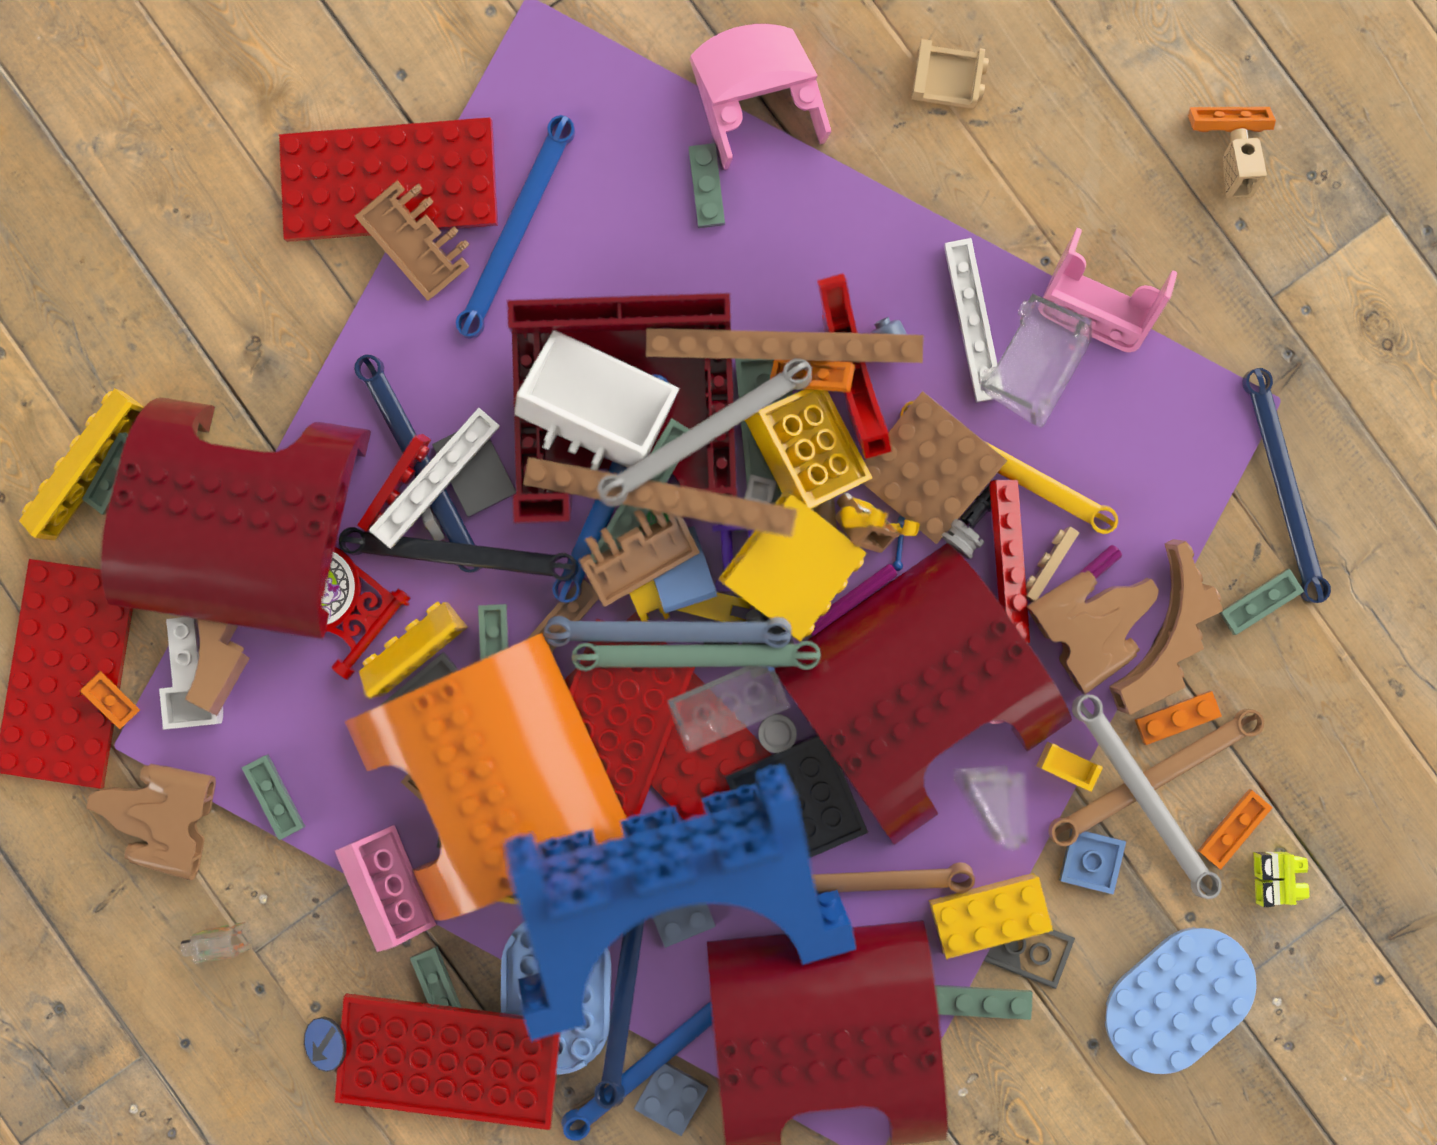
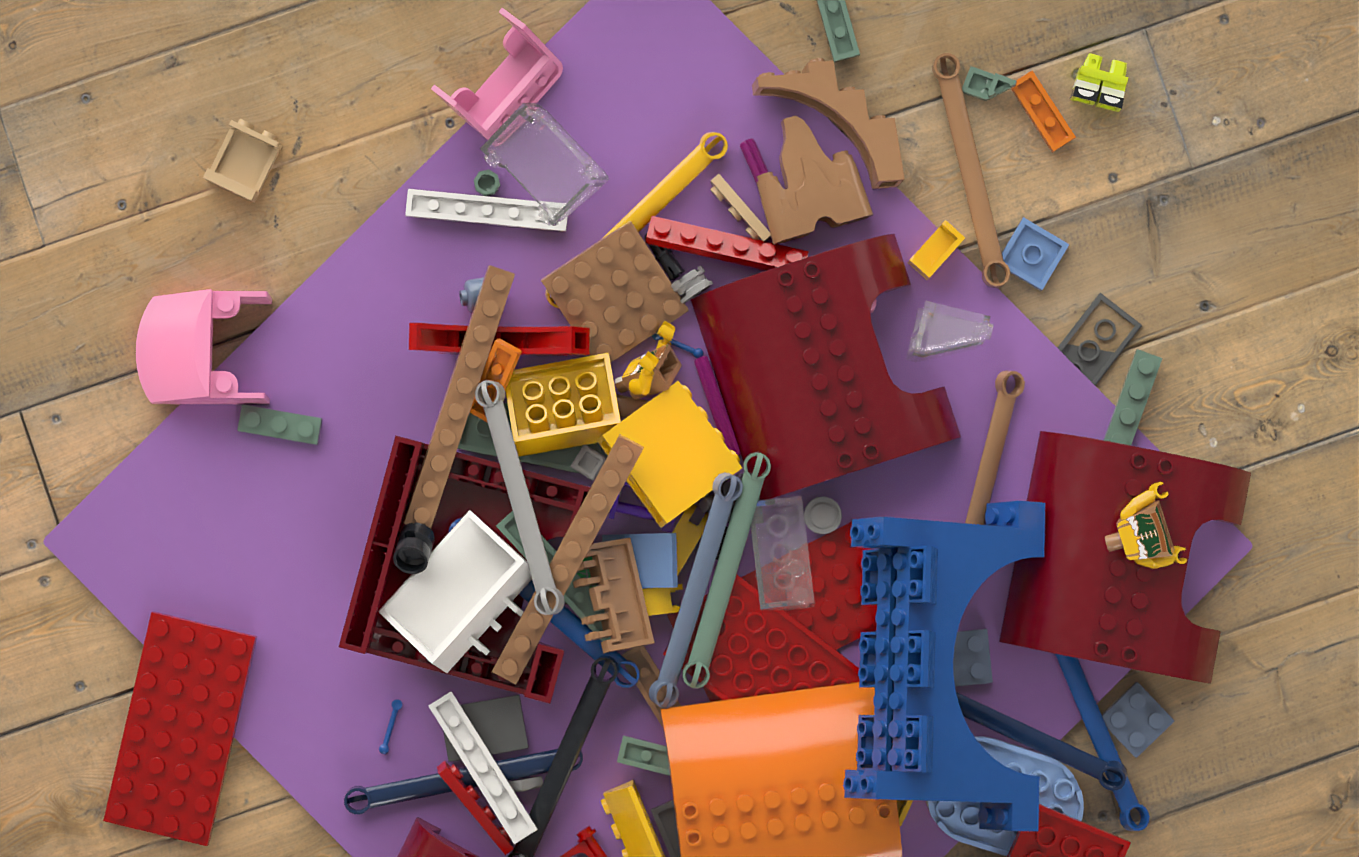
camera: 75 degrees left, 0 degrees up
(411, 242) = (252, 722): medium nougat hinge -> none
(471, 379) = (396, 705): none -> blue hinge
(515, 226) = (263, 619): blue piece -> none
(625, 345) = (414, 548): none -> black wheel
(821, 790) = (889, 490): black plate -> none
(858, 1060) = (1145, 532): none -> torso
(990, 915) = (1053, 366): yellow brick -> none
(999, 312) = (486, 183): none -> sand green tile
(1146, 796) = (986, 186): light grey piece -> none
(1178, 717) = (922, 131): orange plate -> none
(1180, 1000) = (1187, 211): light blue plate -> none
(1243, 766) = (985, 84): none -> sand green slope

